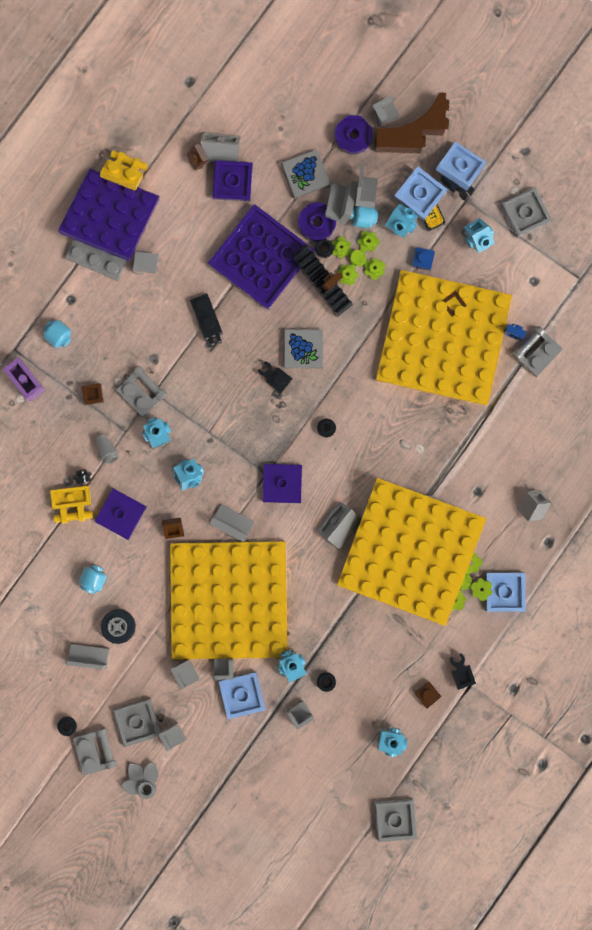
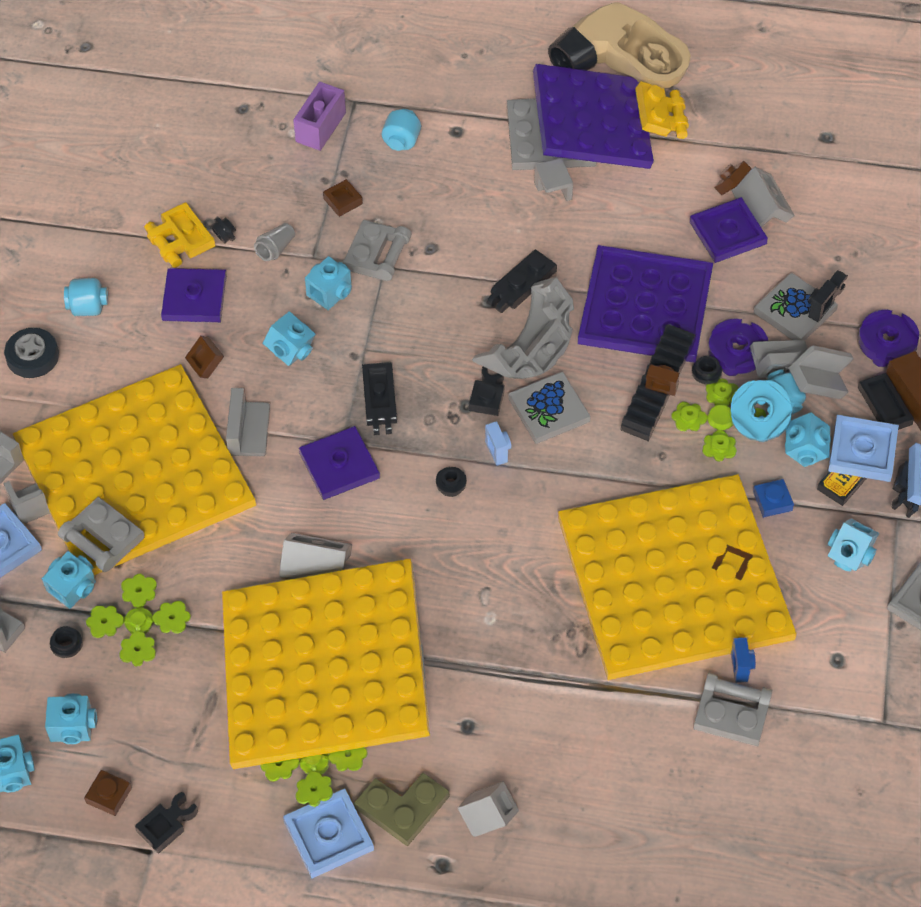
camera: 65 degrees right, 30 degrees down
(65, 163) = (626, 43): none -> tan piece
(250, 440) = (379, 396): none -> black hinge
(256, 332) = (542, 338): none -> light grey windscreen
(269, 631) = (106, 526): none -> light grey plate
(314, 156) = (824, 298): none -> black plate
(316, 390) = (497, 443): none -> light blue plate
(331, 637) = (138, 620): none -> lime plant
(363, 232) = (761, 392): none -> medium azure plate
(380, 706) = (70, 719): none -> medium azure brick
(393, 162) = (885, 401): none -> black tile
(513, 550) = (403, 815): none -> olive plate

